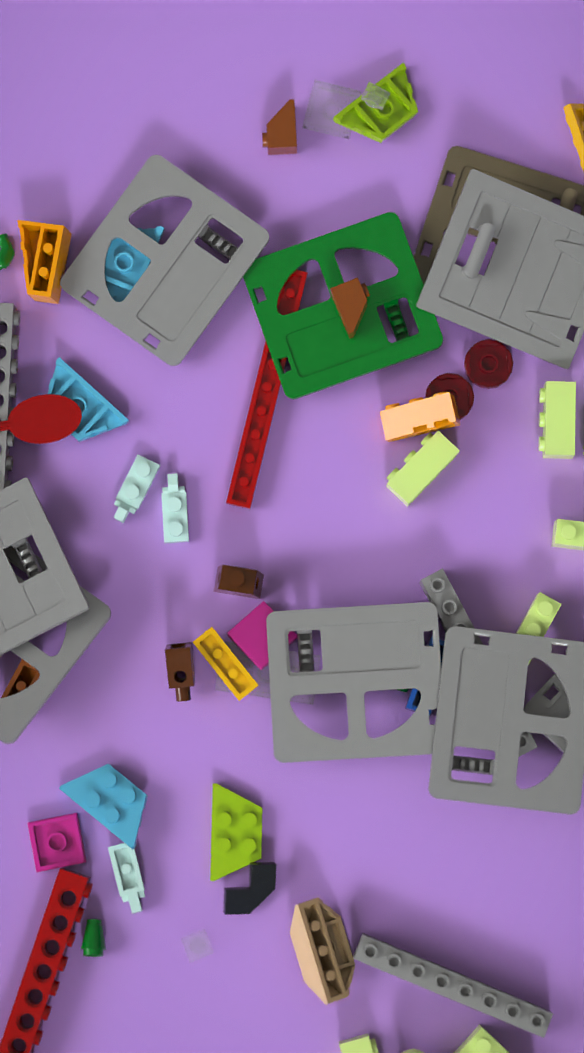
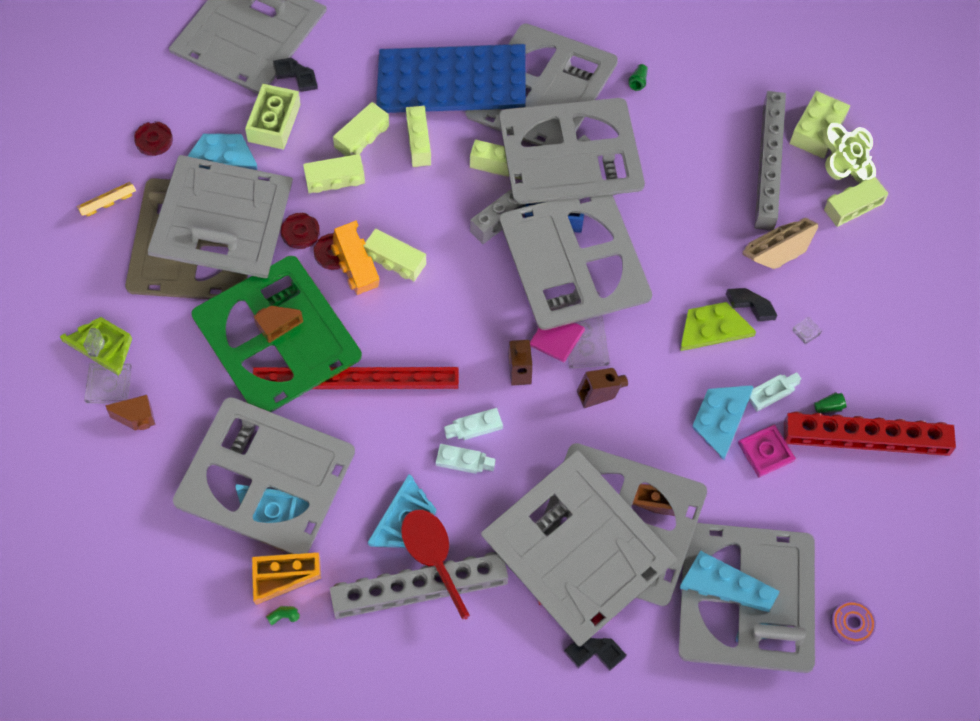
camera: 110 degrees left, 20 degrees down
(225, 663) = (587, 354): yellow plate -> none

